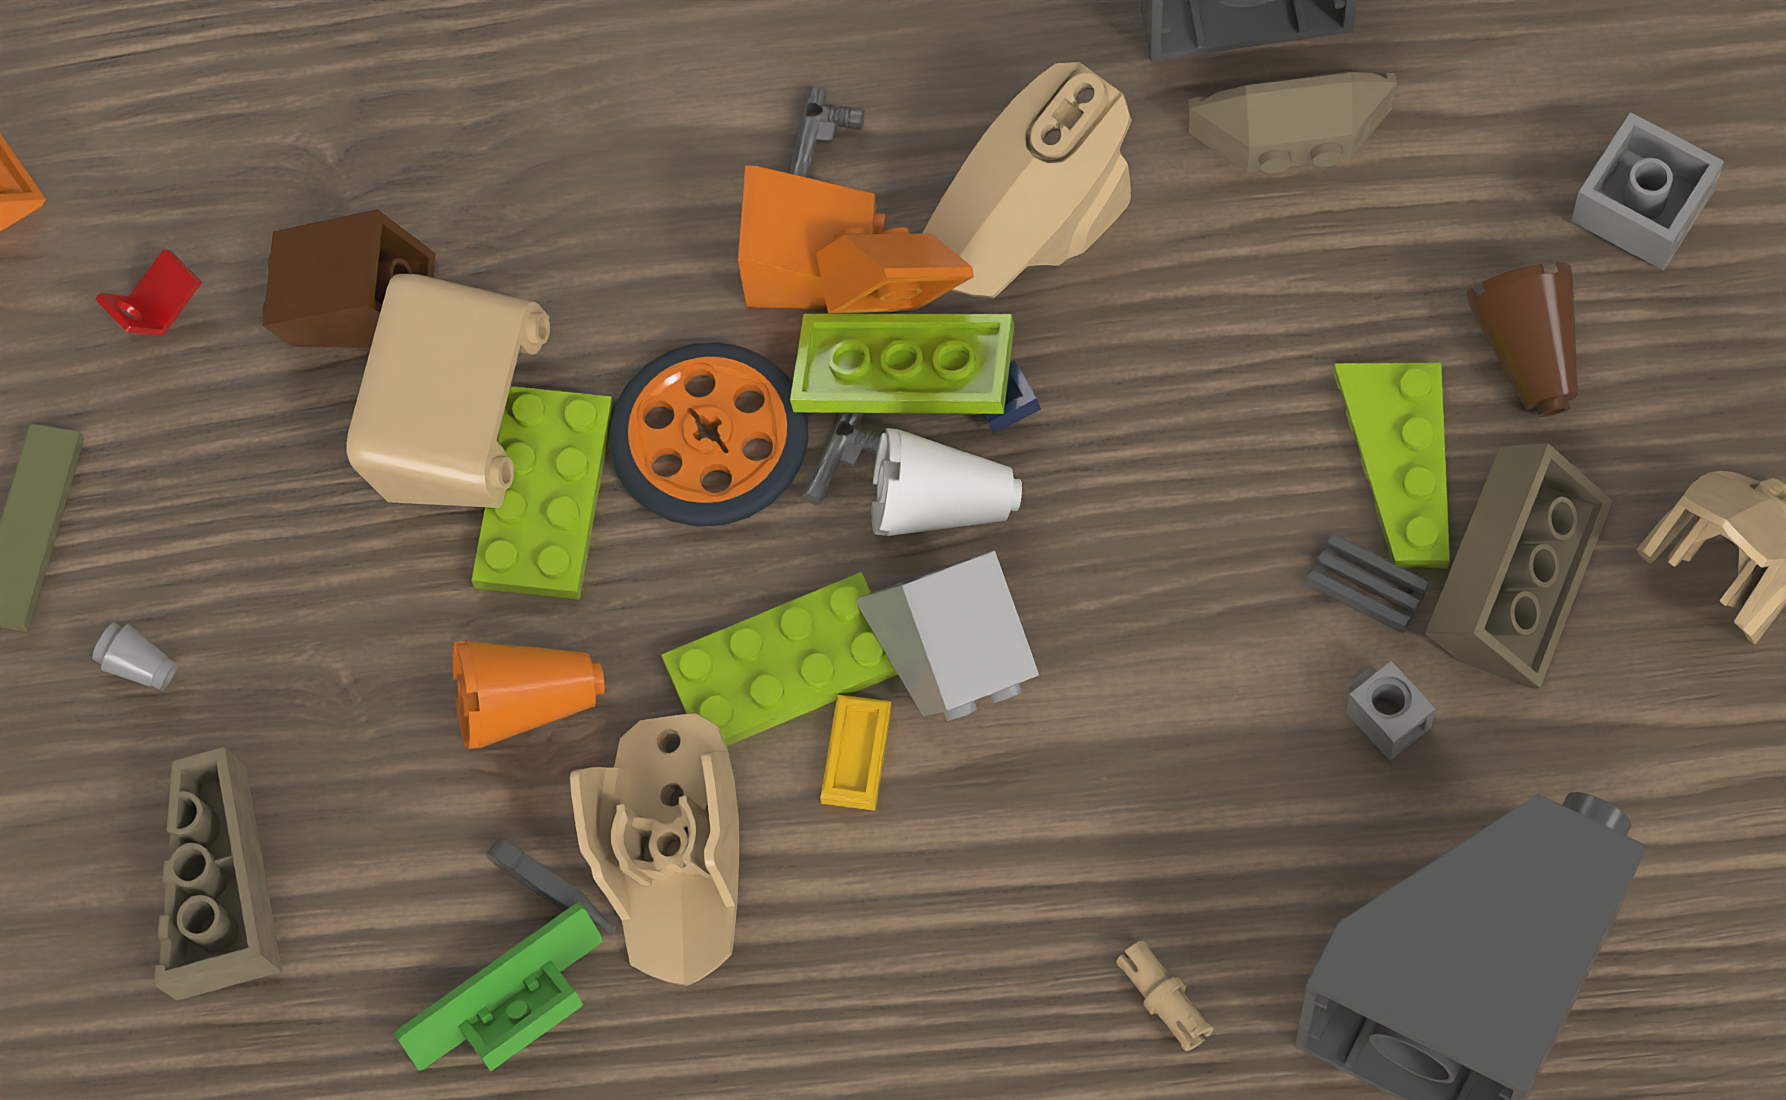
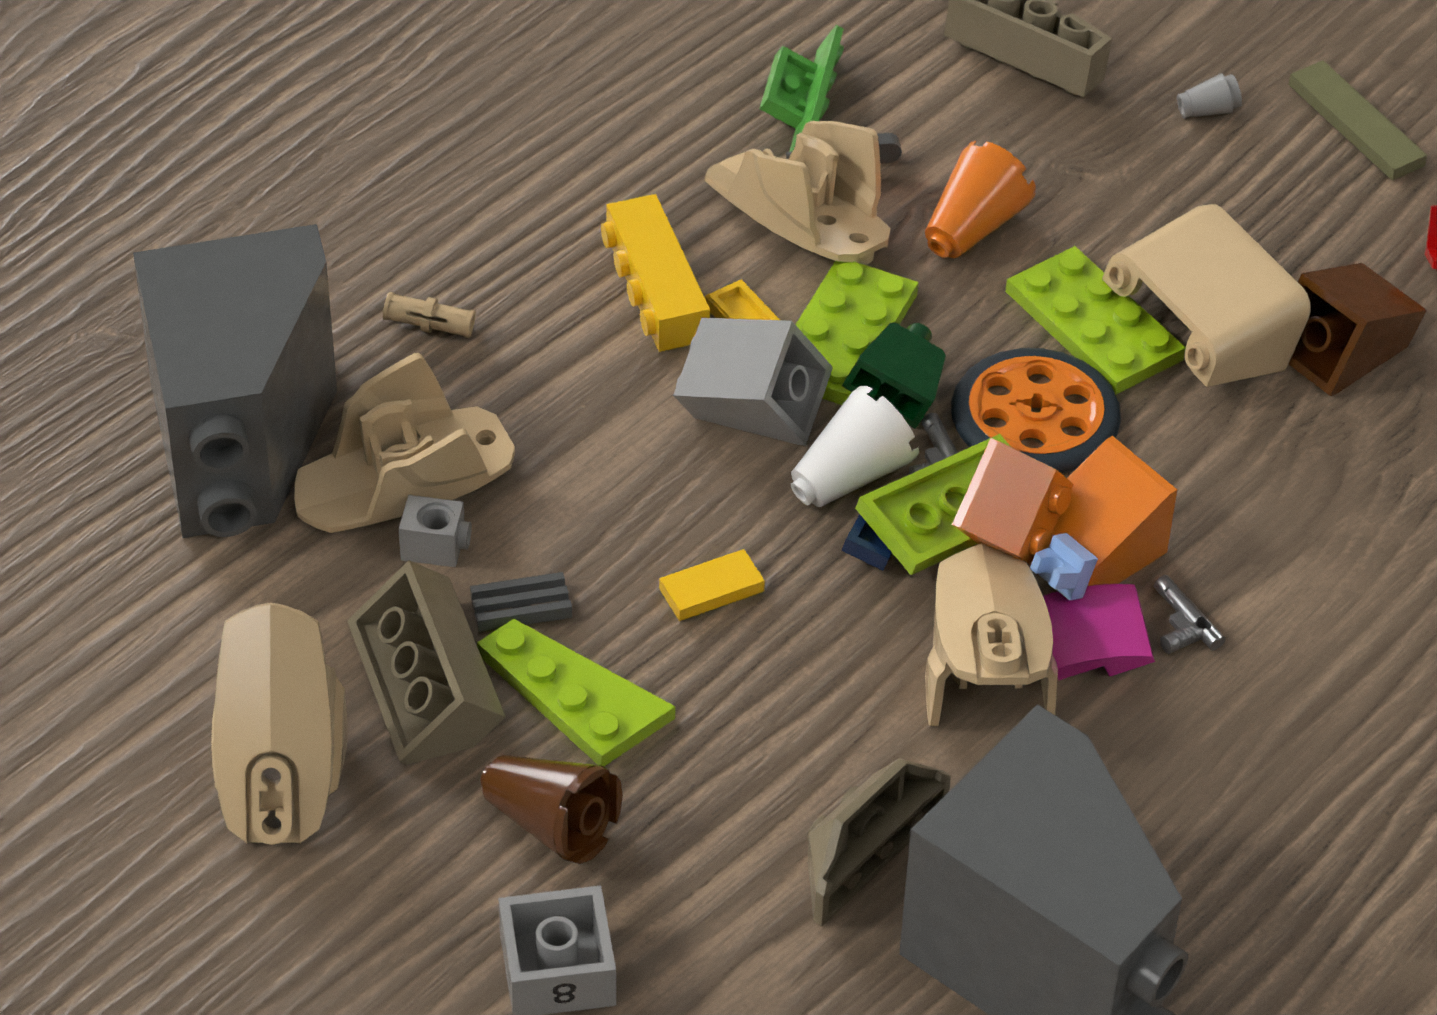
camera: 130 degrees right, 20 degrees down
(798, 546) = (902, 369): none -> dark green torso
(891, 204) = (1065, 566): none -> light blue tile
(897, 865) = (654, 271): none -> yellow brick
(905, 166) = (1099, 630): none -> dark pink slope
(1182, 470) = (711, 584): none -> yellow tile
(1369, 789) = (399, 443): none -> tan piece

